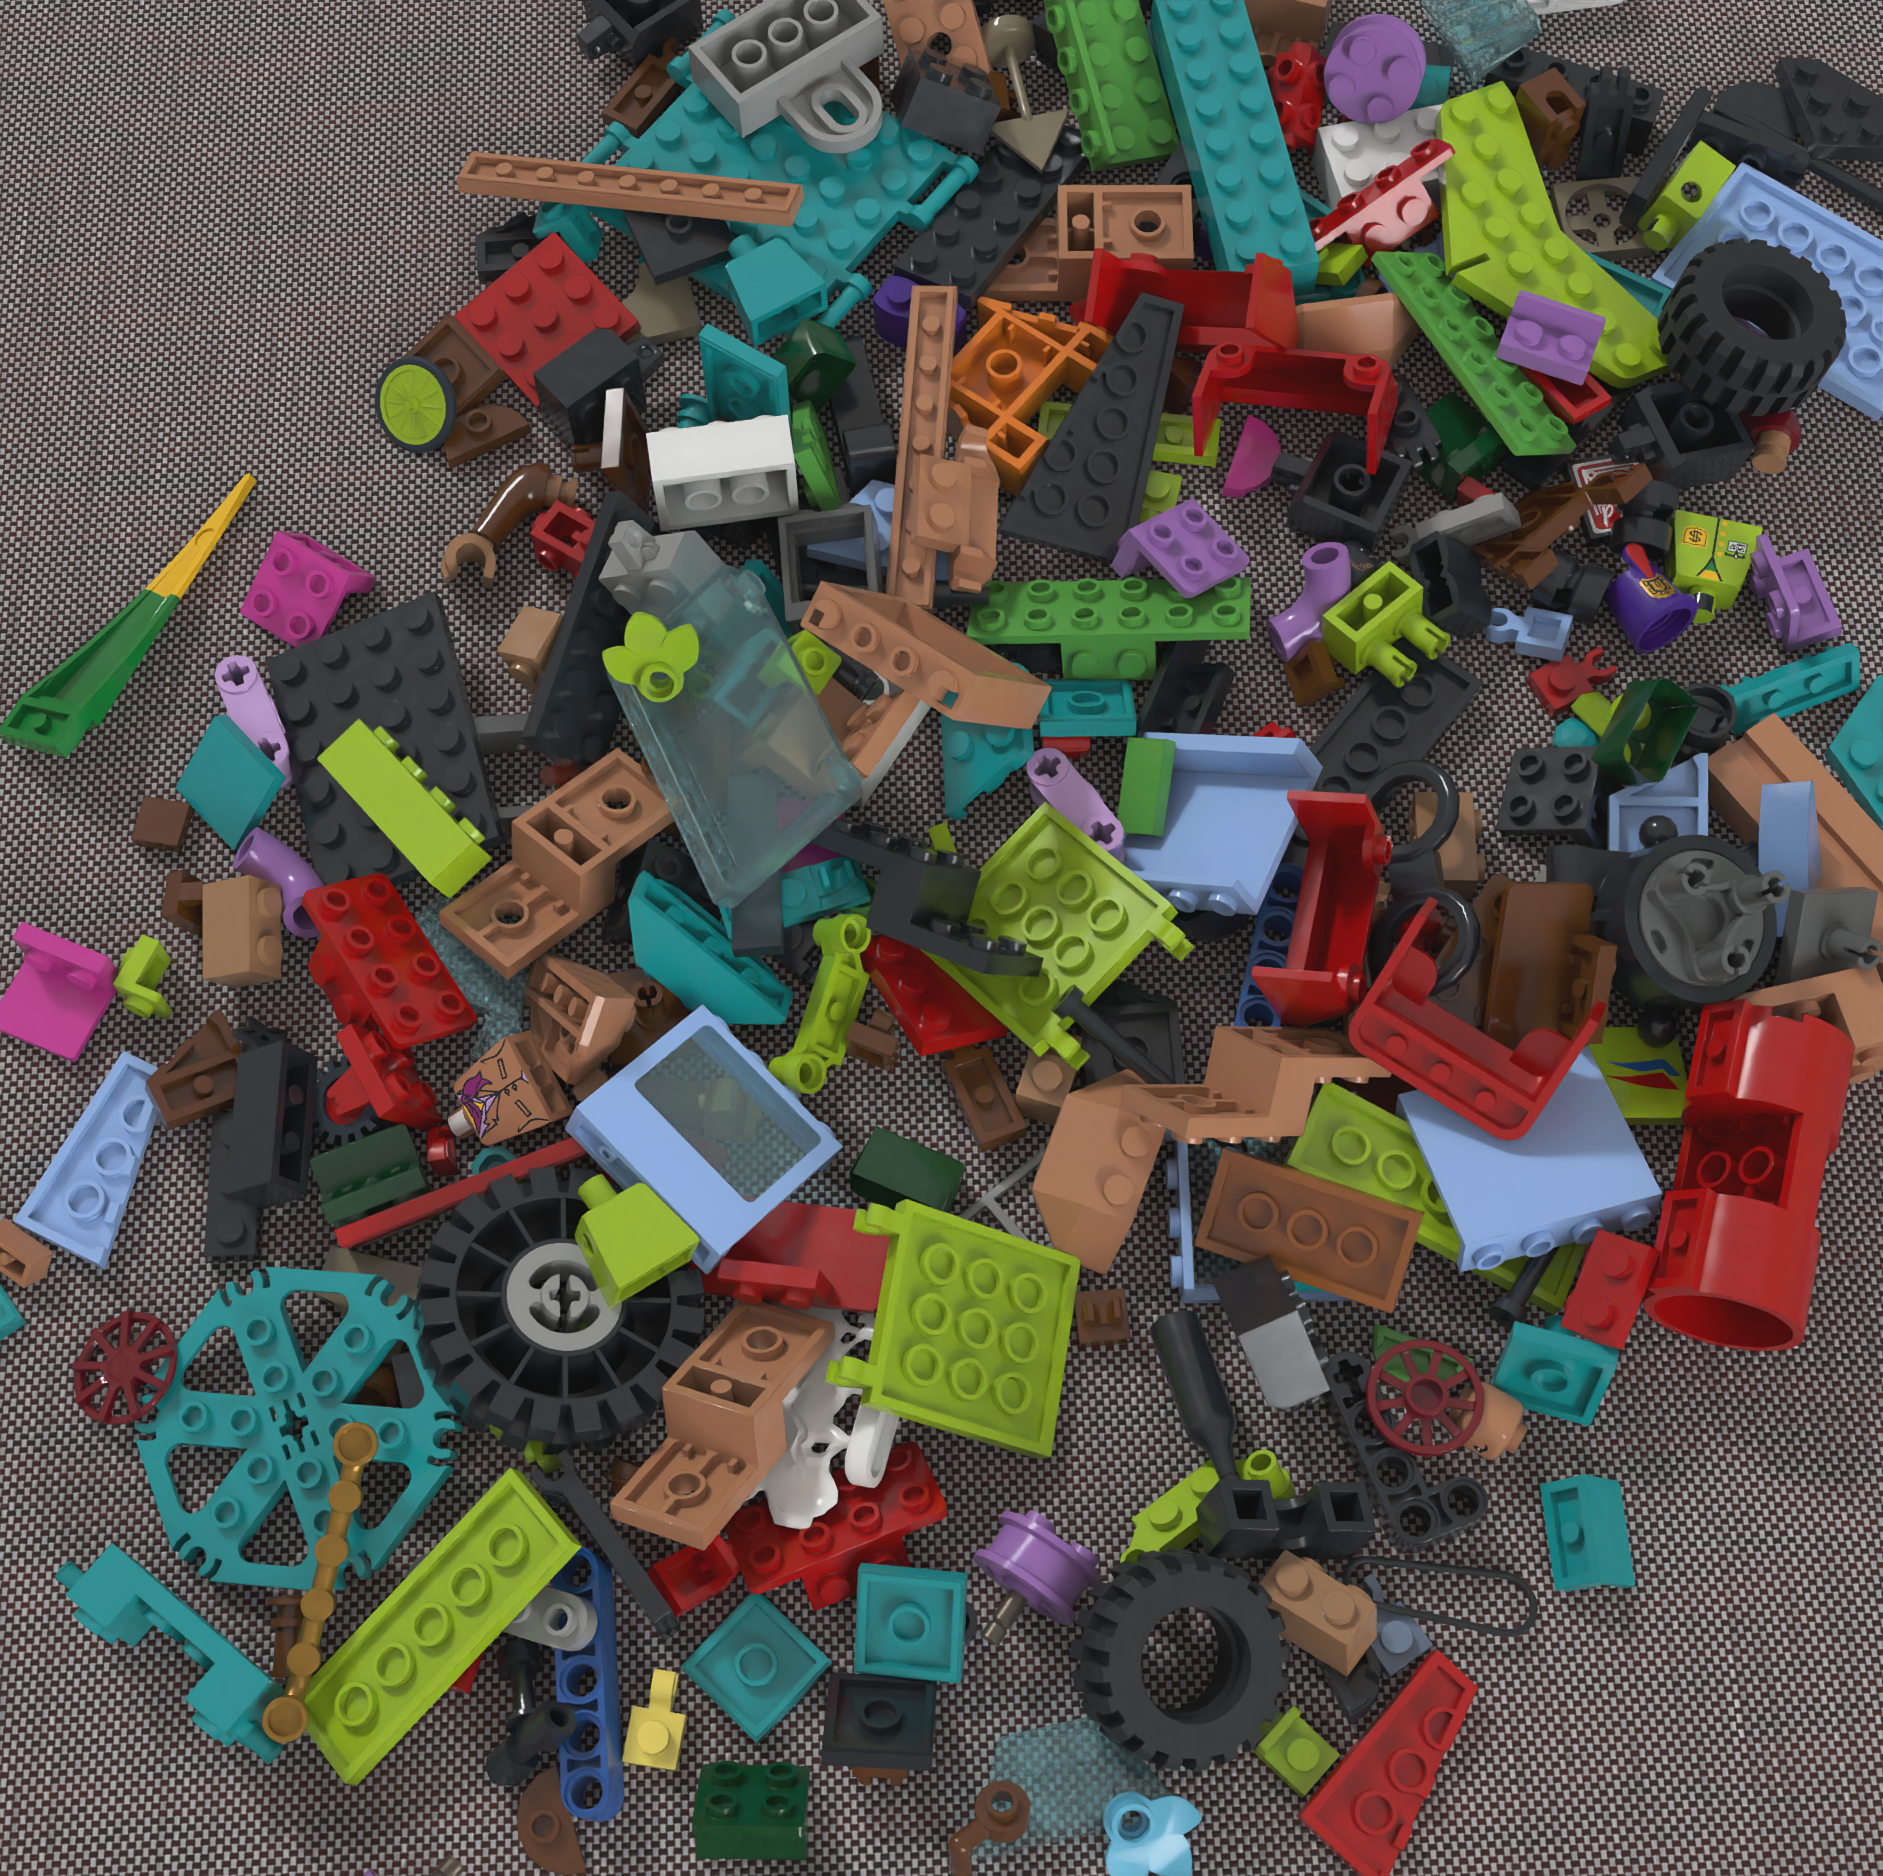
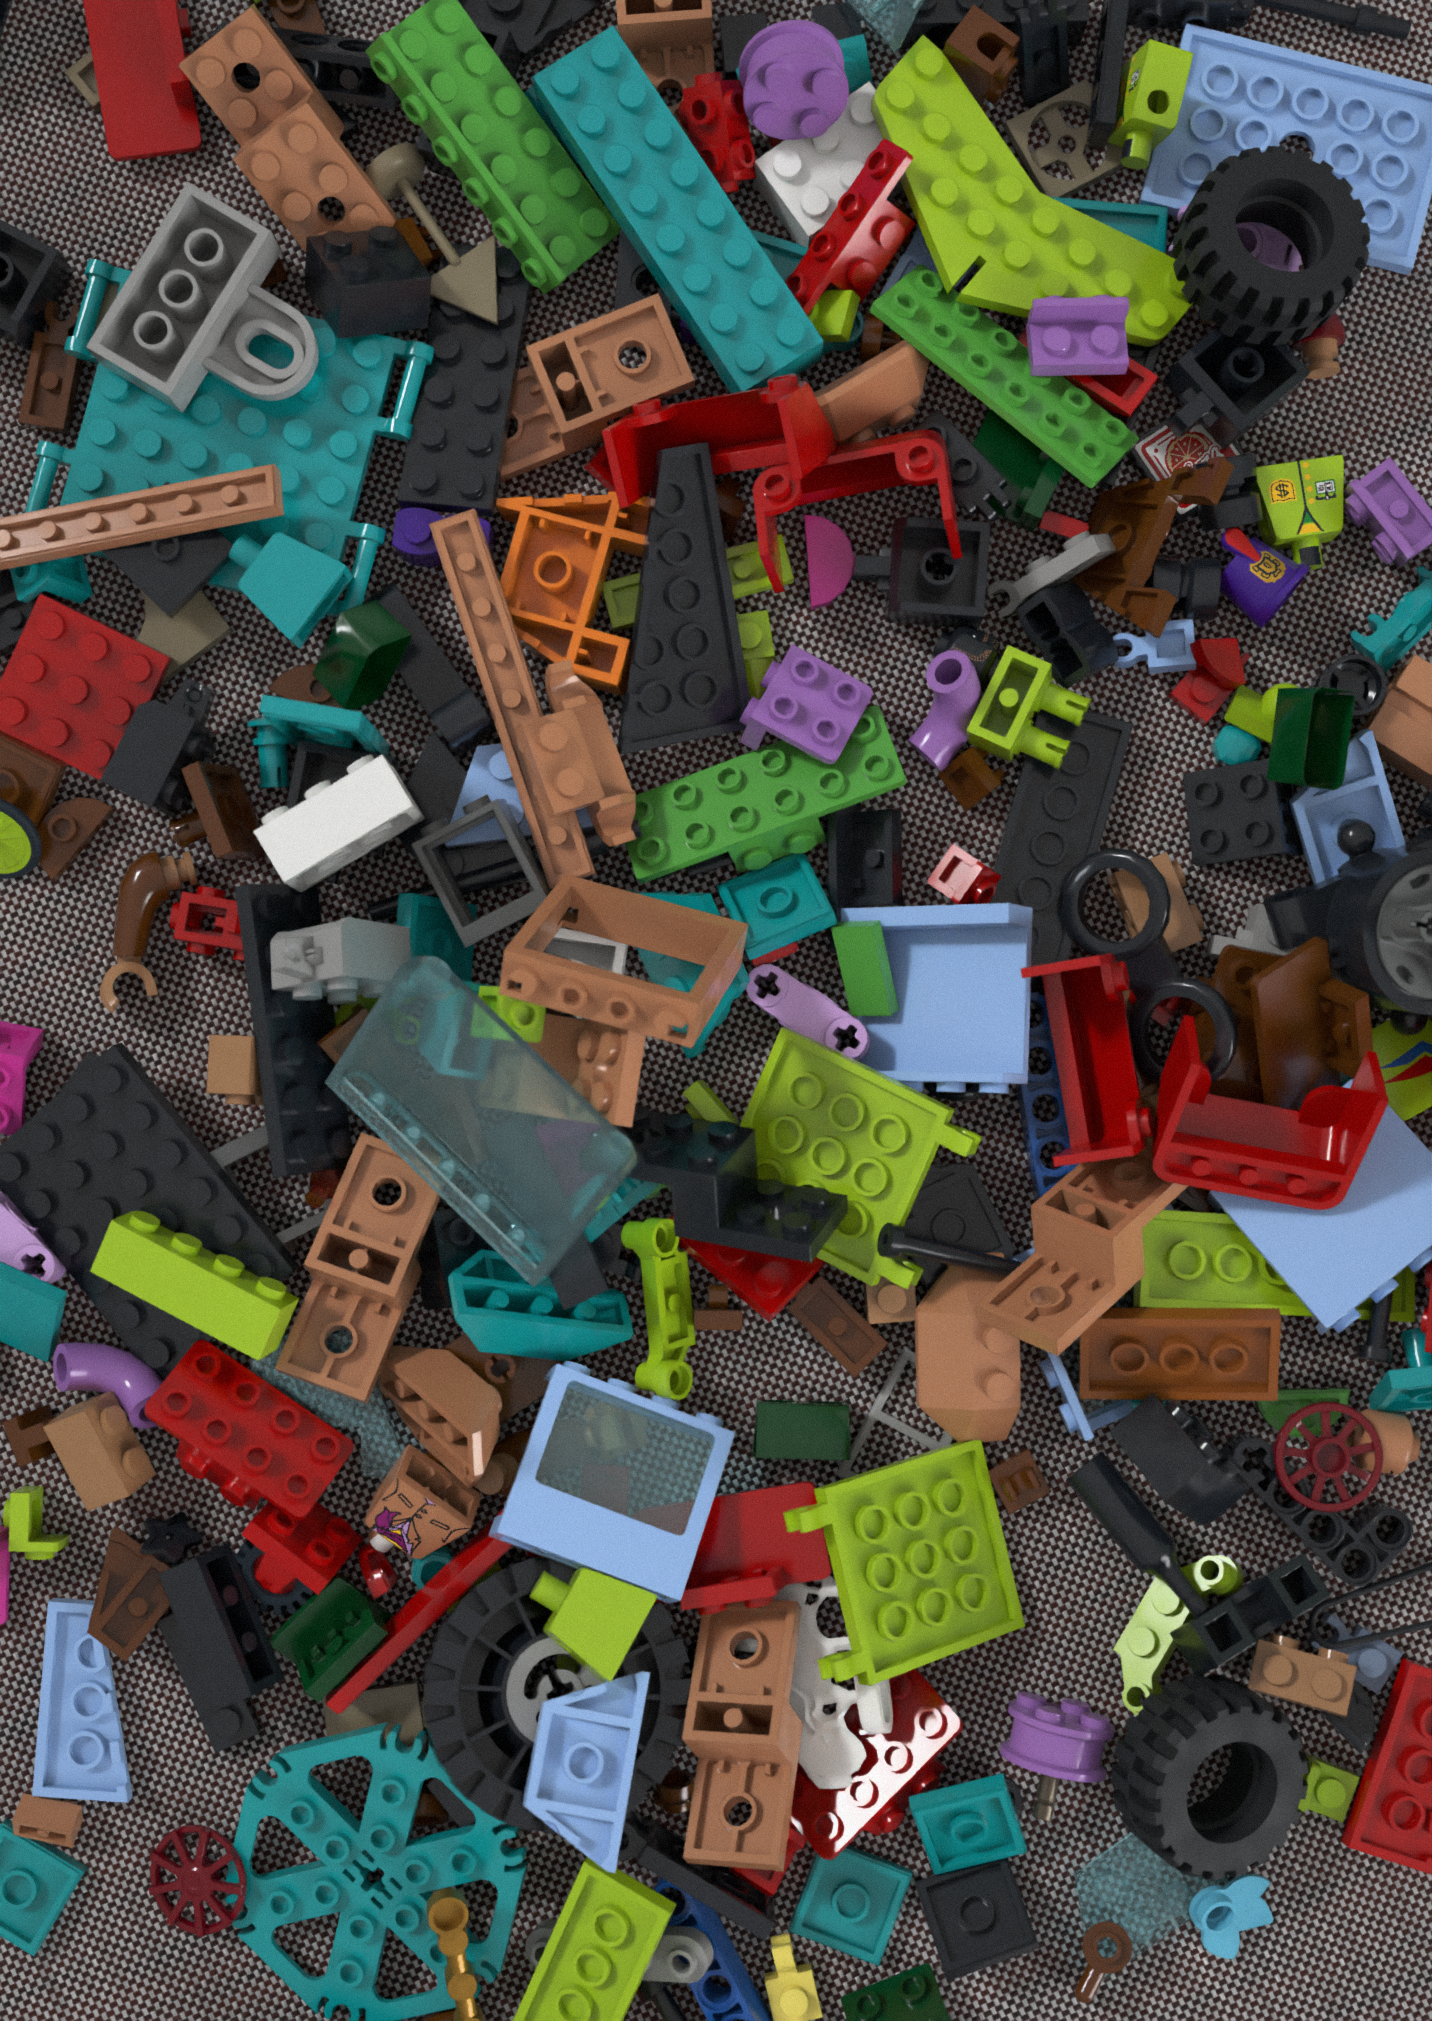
camera: 20 degrees left, 20 degrees up
(557, 1361) = (587, 1763): none -> light blue wing
(651, 650) = (367, 1063): lime plate -> none
(814, 458) = (411, 749): bright green wing -> none
(1587, 654) = (1221, 659): none -> red tile

